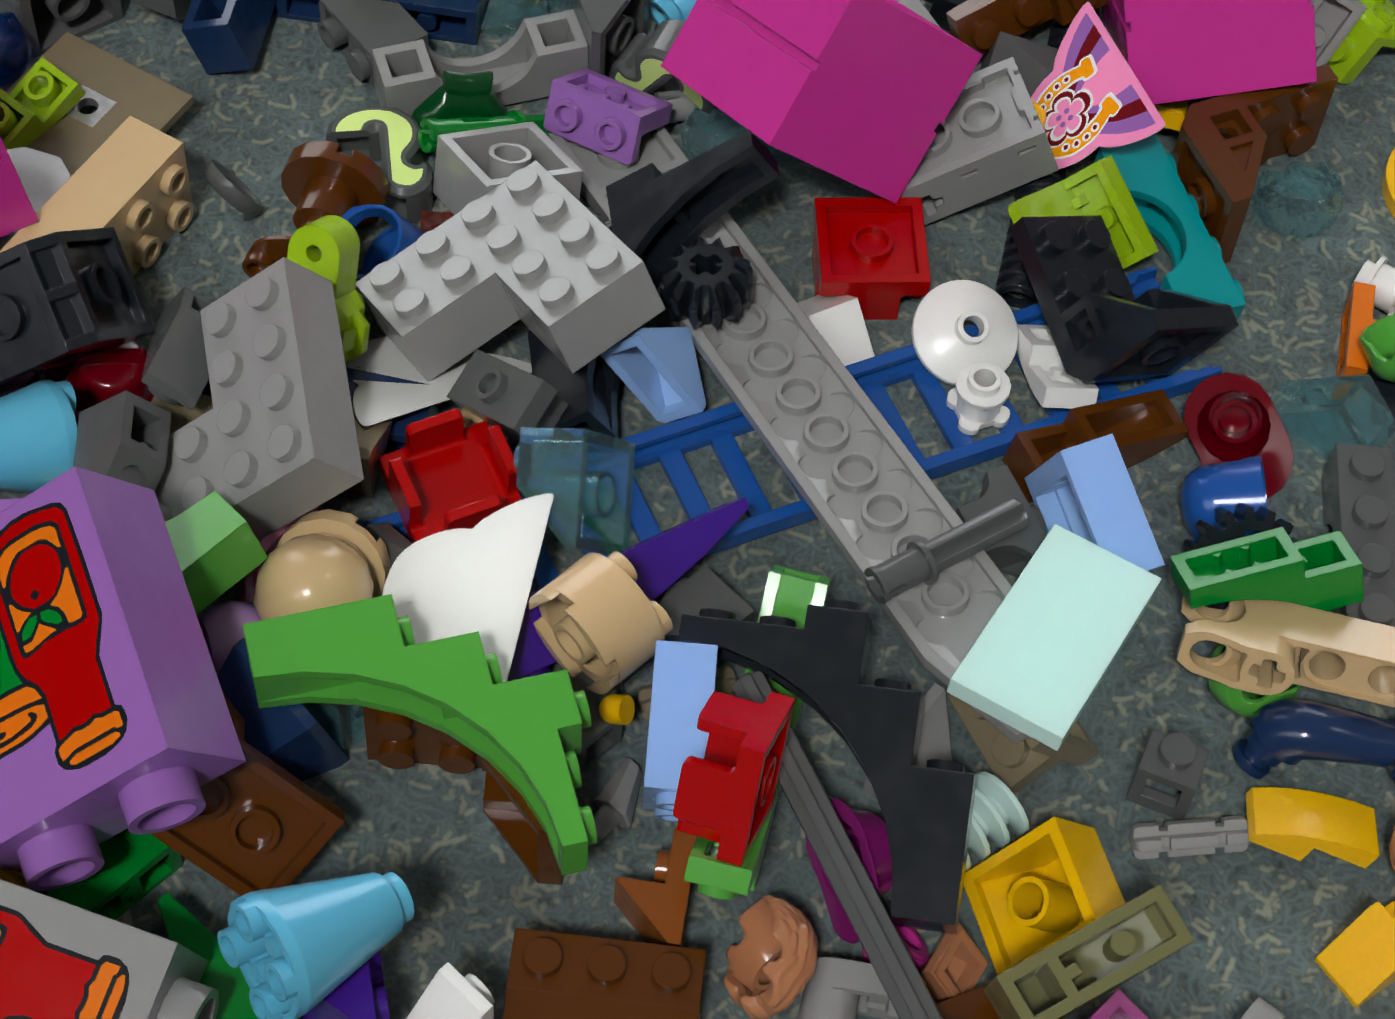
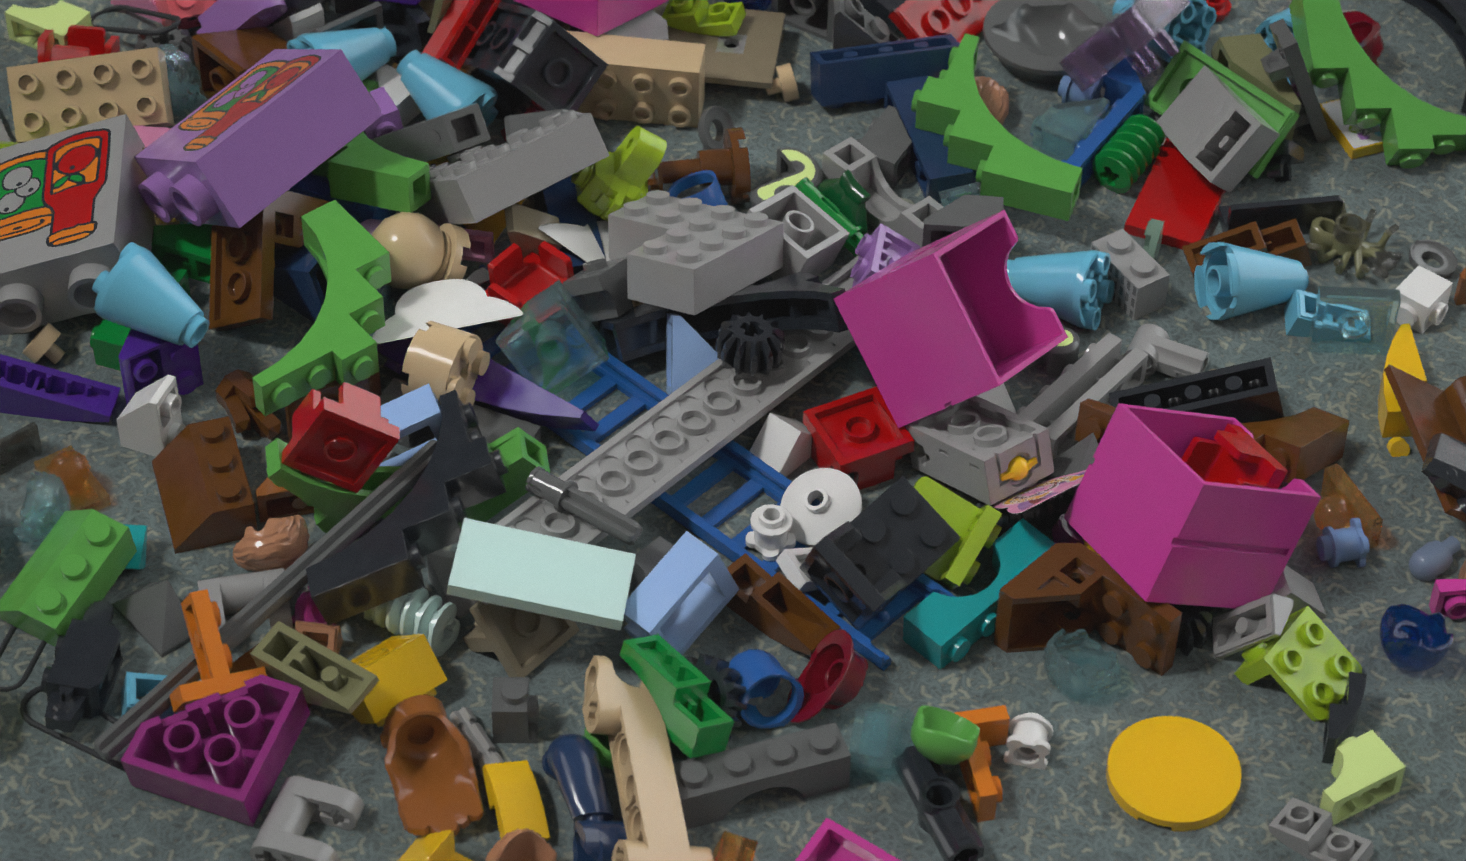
camera: 70 degrees right, 10 degrees down
(191, 79) = (784, 83): none -> tan tile
(469, 903) = (238, 399): none -> reddish brown rock
(1248, 899) = (430, 768): none -> dark orange hair

